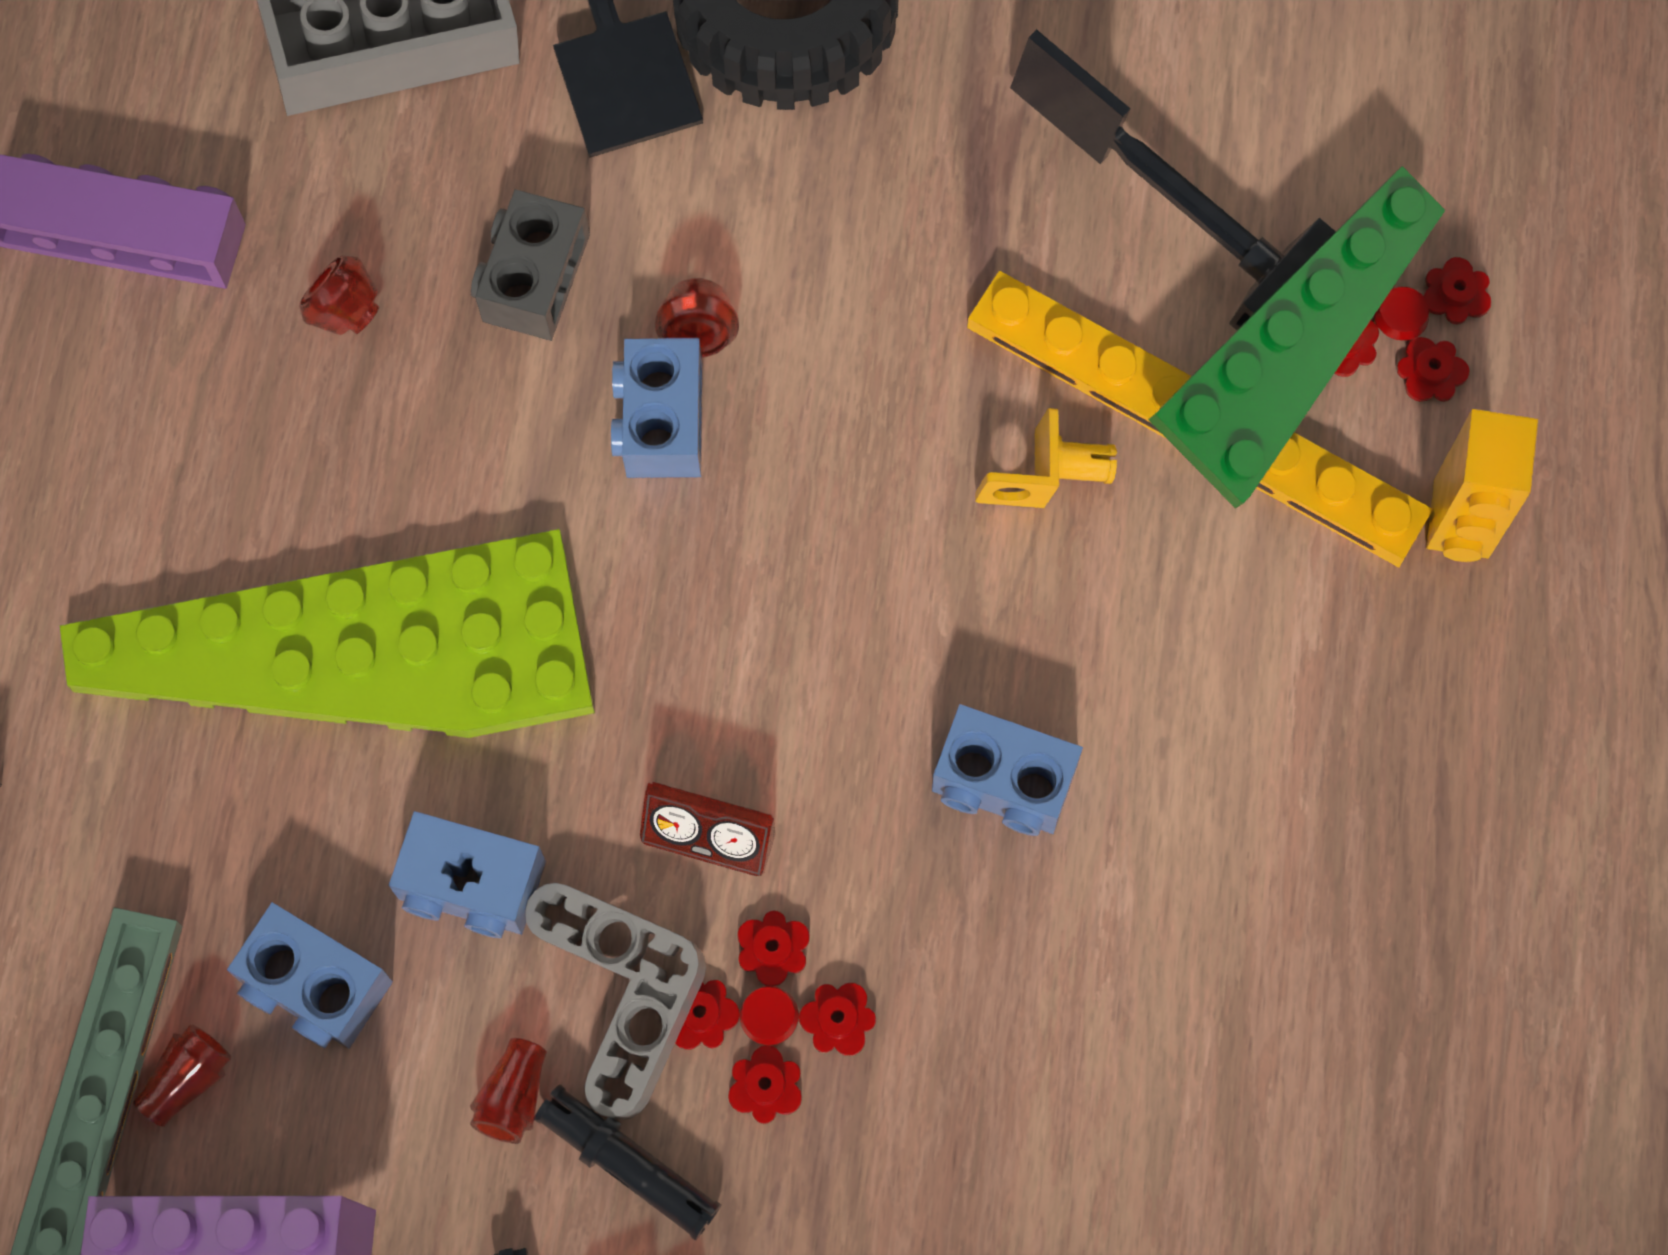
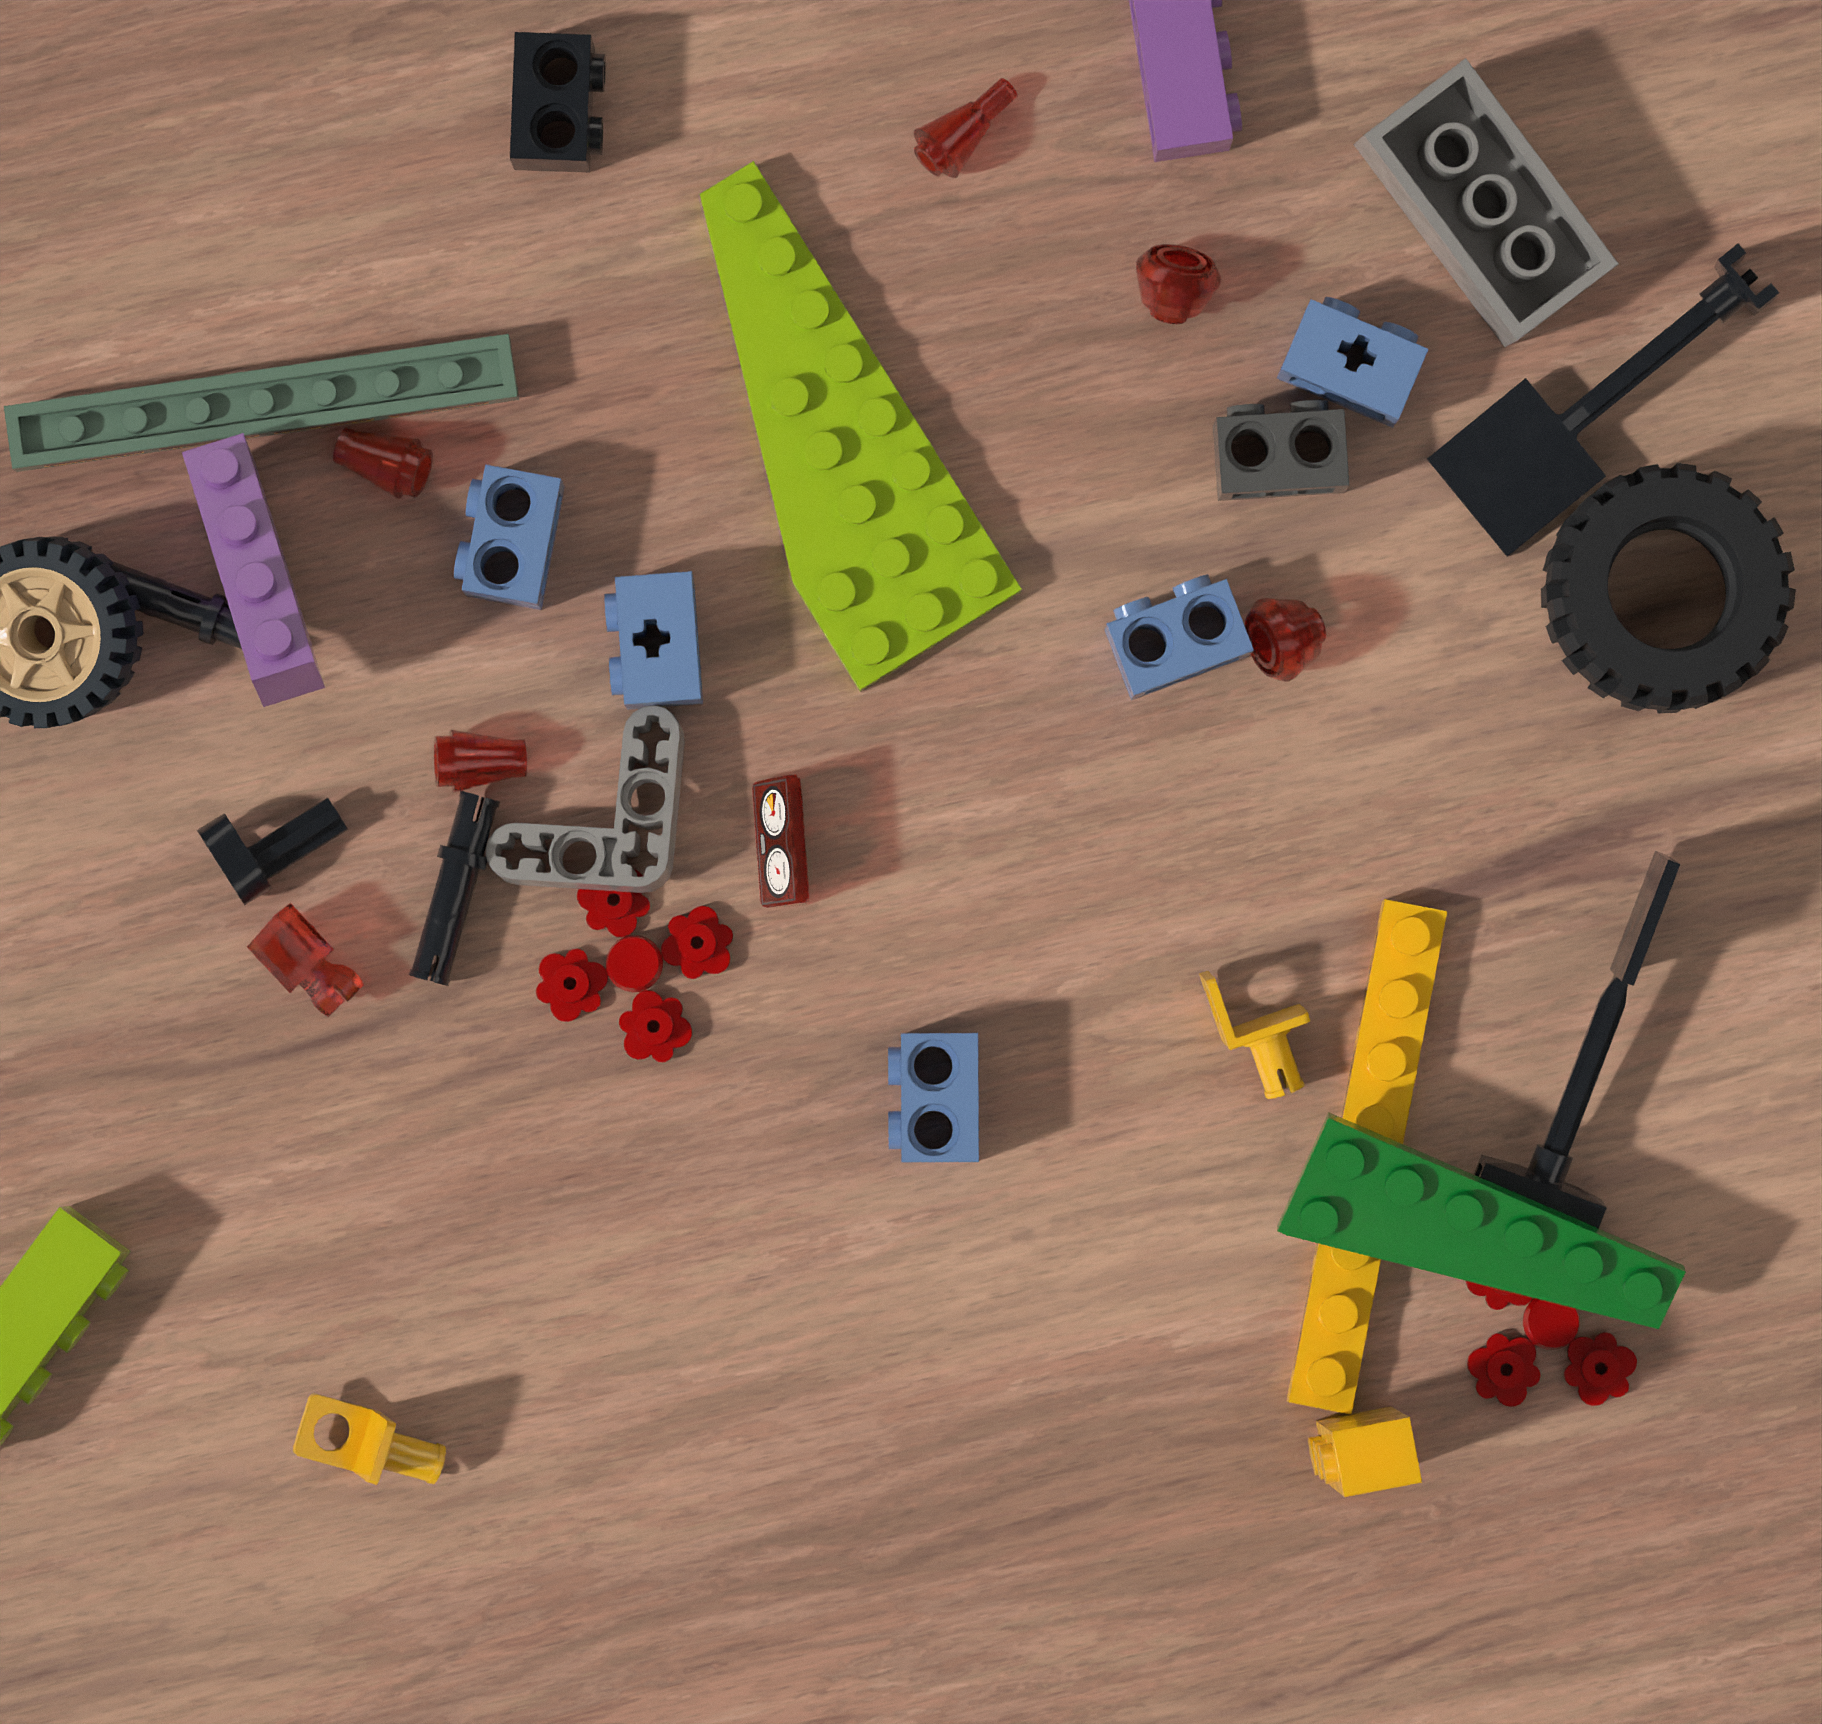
camera: 65 degrees right, 15 degrees up
(123, 446) = (952, 138): none -> clear red cone
(476, 177) = (1372, 390): none -> medium blue brick

